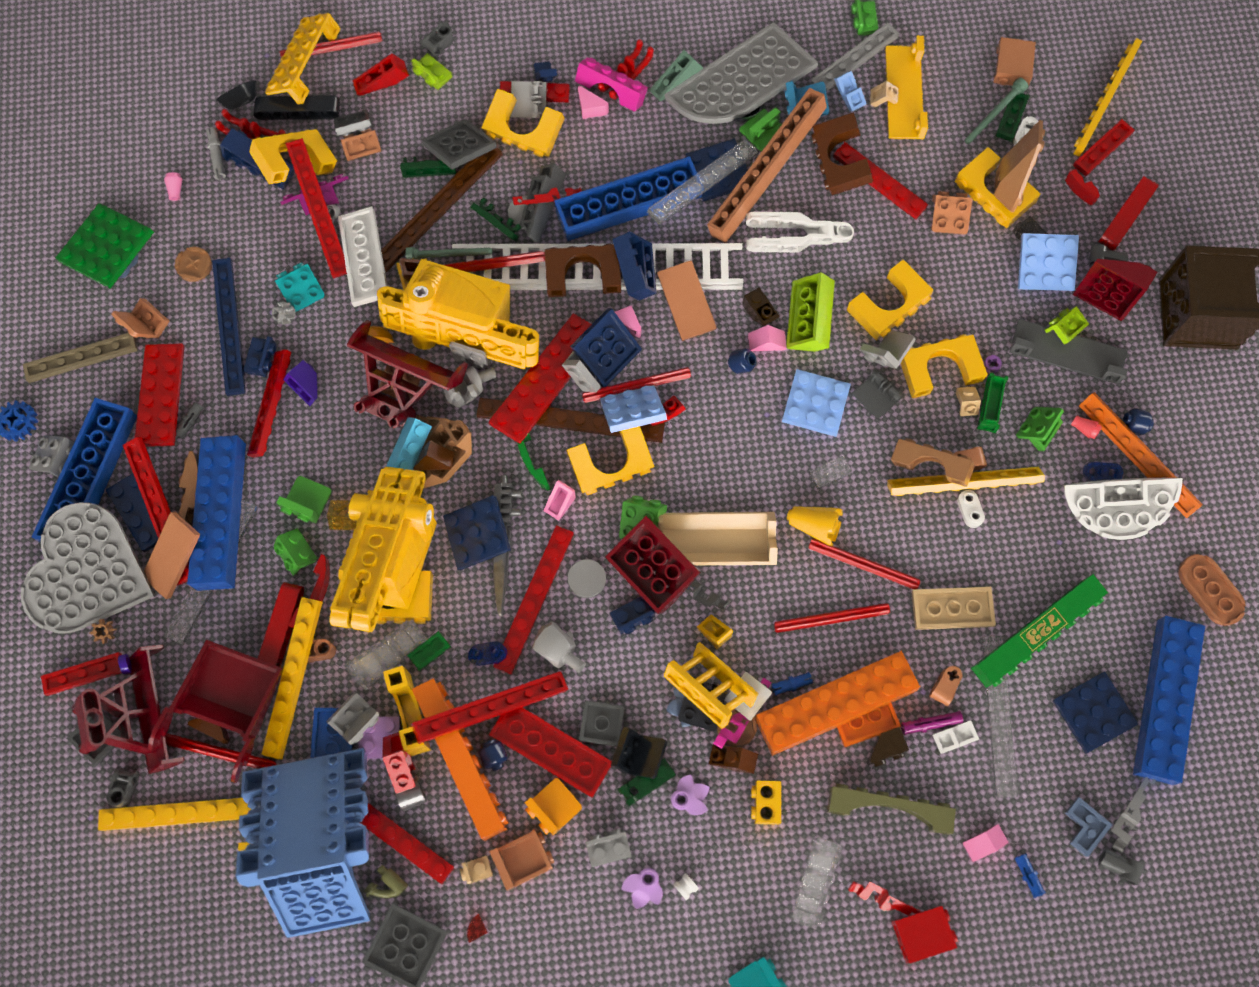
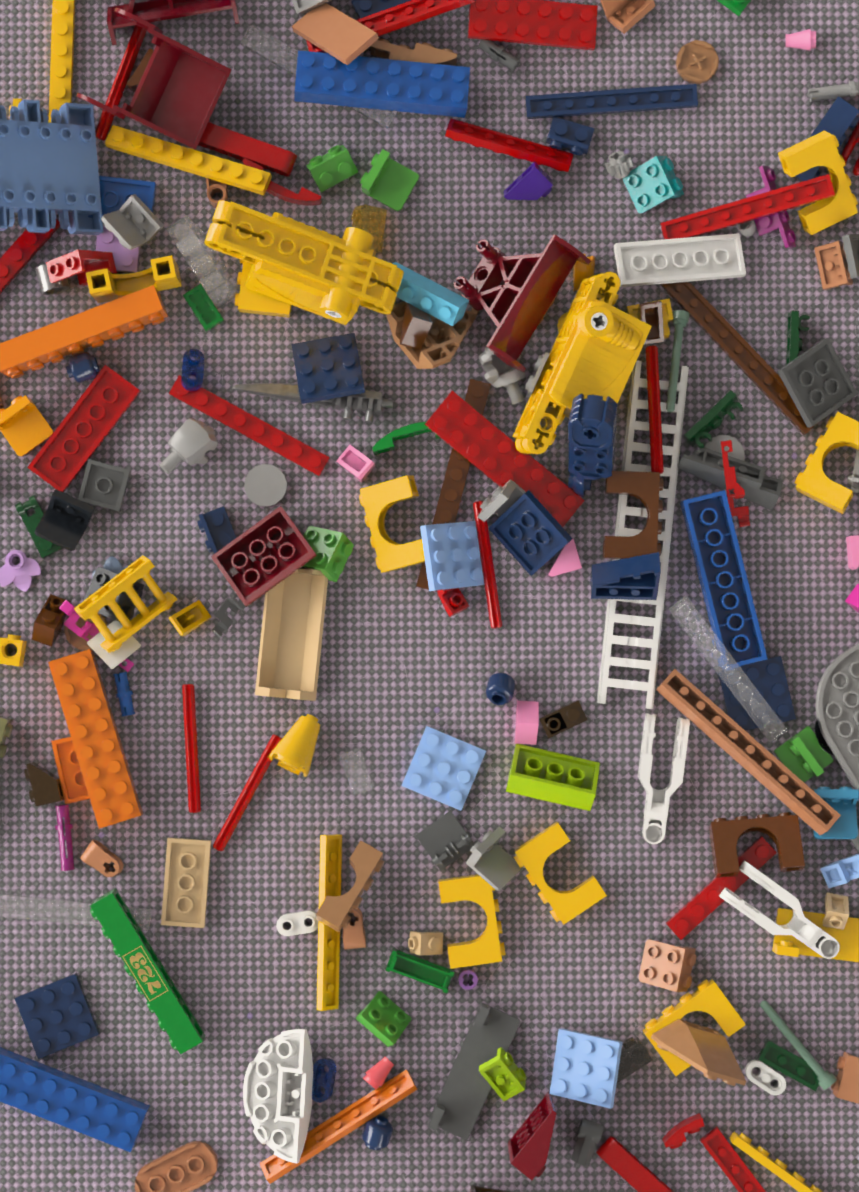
camera: 95 degrees right, 15 degrees up
(489, 707) = (126, 367): red plate -> none
(524, 295) = (591, 441): none -> dark blue brick
(686, 300) = (584, 633): nougat tile -> none
(900, 117) = (799, 925): none -> white piece
(955, 737) = (48, 861): white slope -> none

